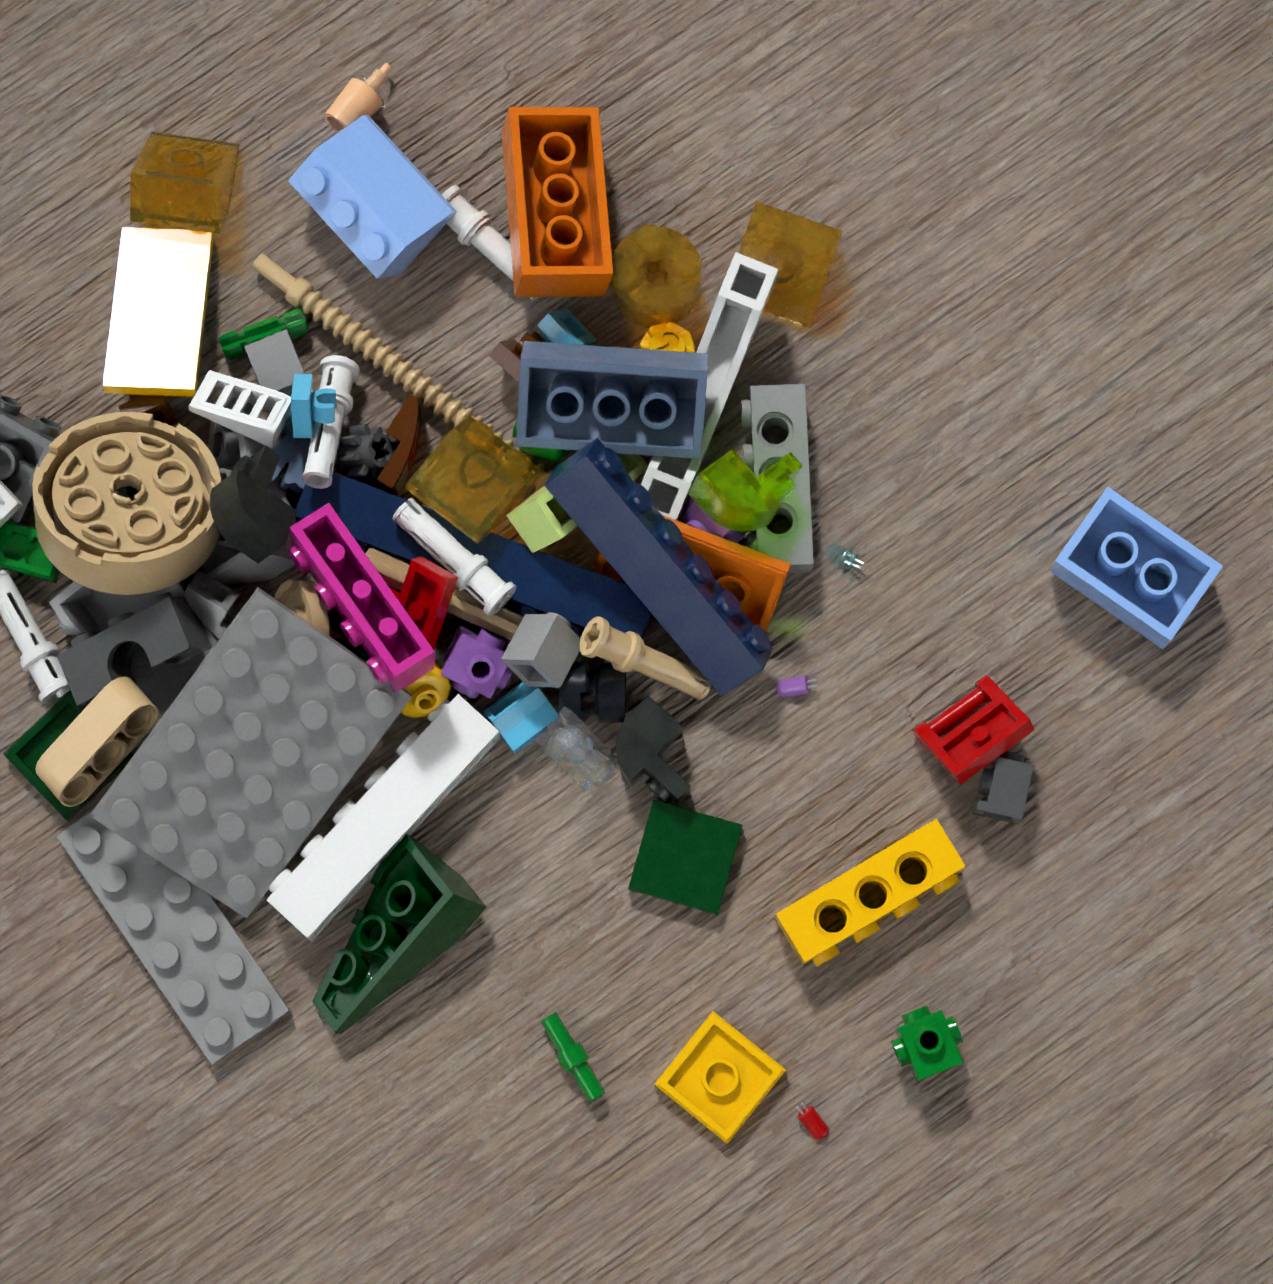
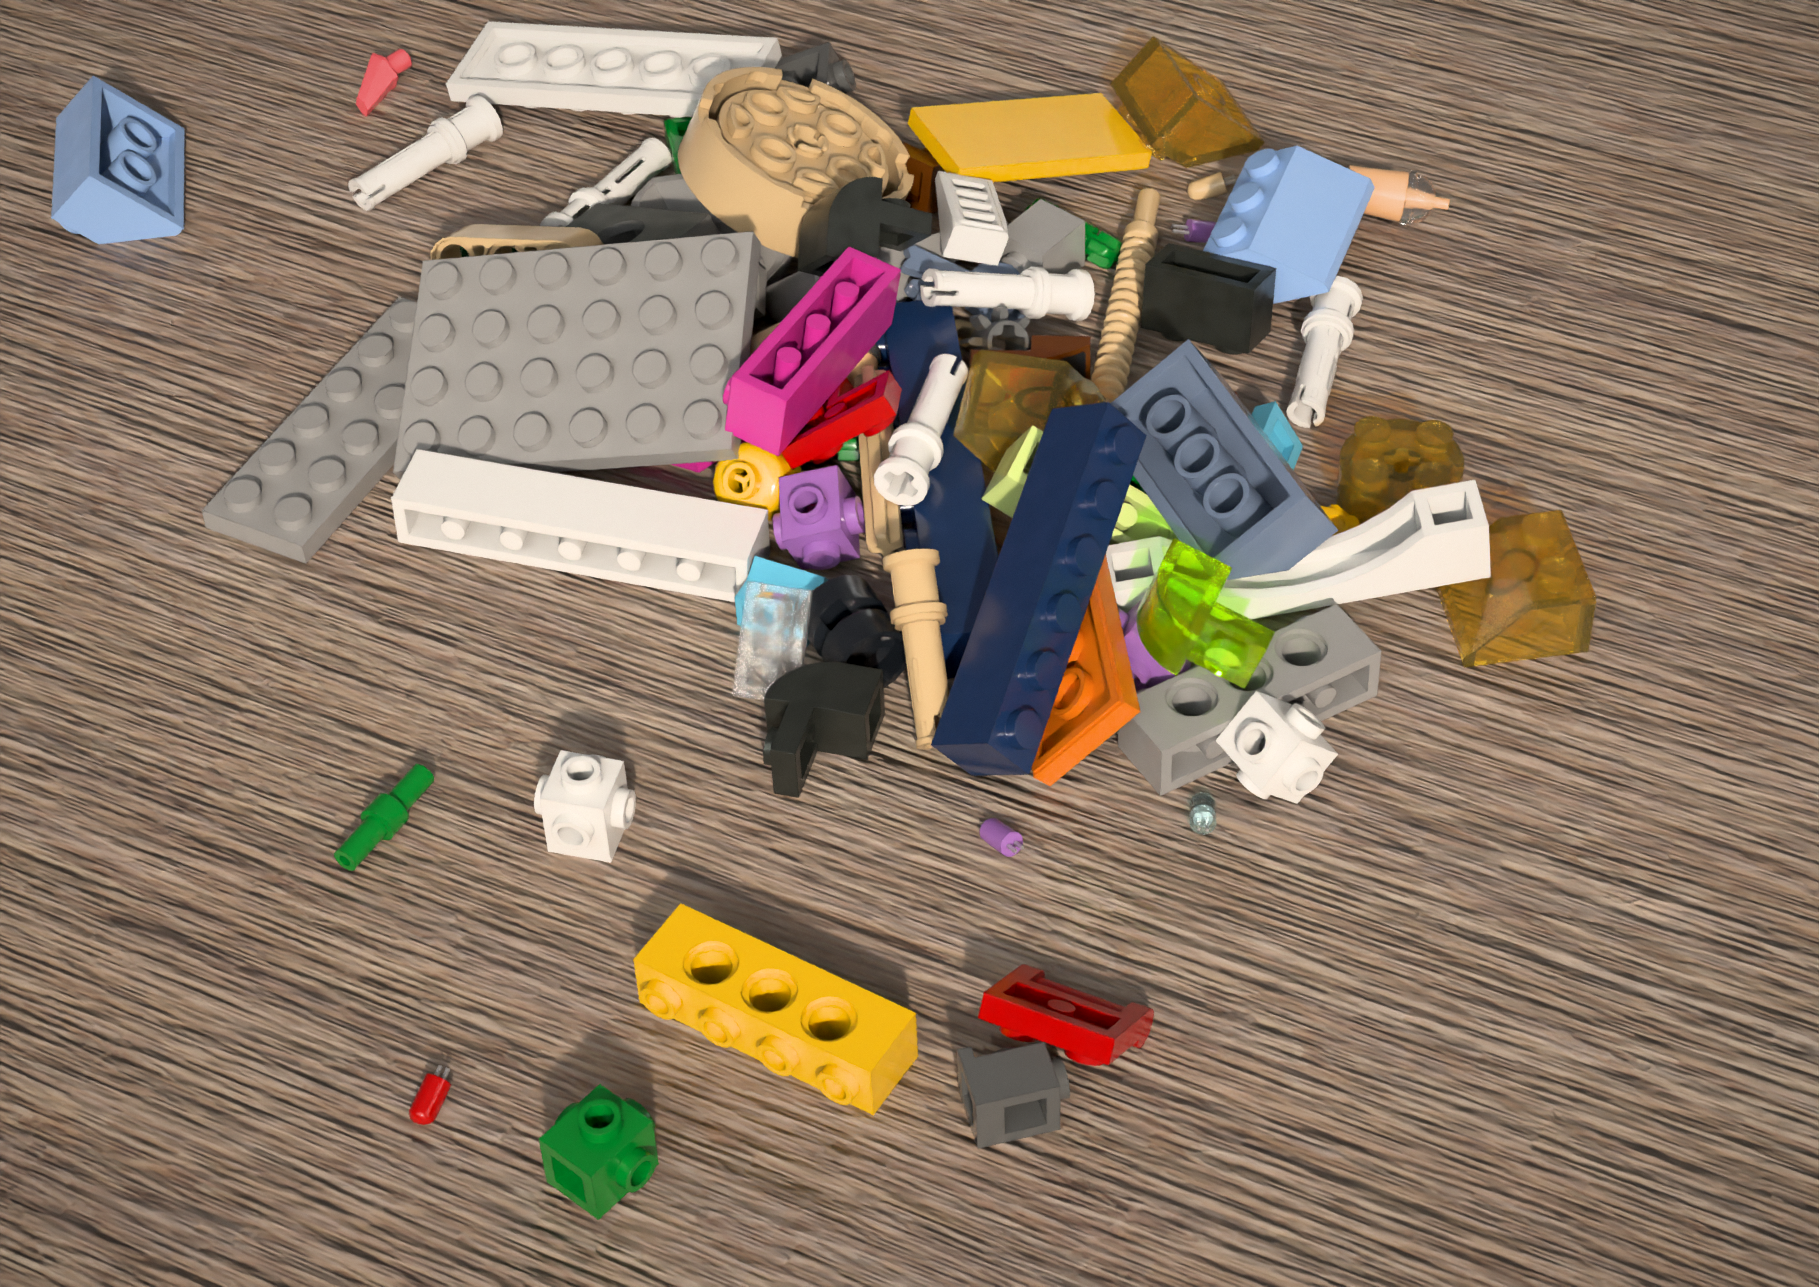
camera: 60 degrees right, 35 degrees down
(263, 210) = (1210, 186): none -> tan piece
(308, 245) = (1195, 230): none -> medium lavender piece
(310, 405) = (1007, 247): medium azure tile -> none
(406, 924) = (480, 604): dark green wedge -> none
(410, 291) = (1208, 299): none -> pearl dark grey brick
(542, 650) = (861, 539): light grey brick -> none
(557, 202) = (1409, 351): orange brick -> none
(657, 946) = (585, 805): none -> white brick
(685, 857) = (707, 820): dark green tile -> none
(720, 1077) = (437, 974): yellow tile -> none
(840, 489) = (1277, 748): none -> white brick
(1135, 568) = (1416, 1091): light blue brick -> none

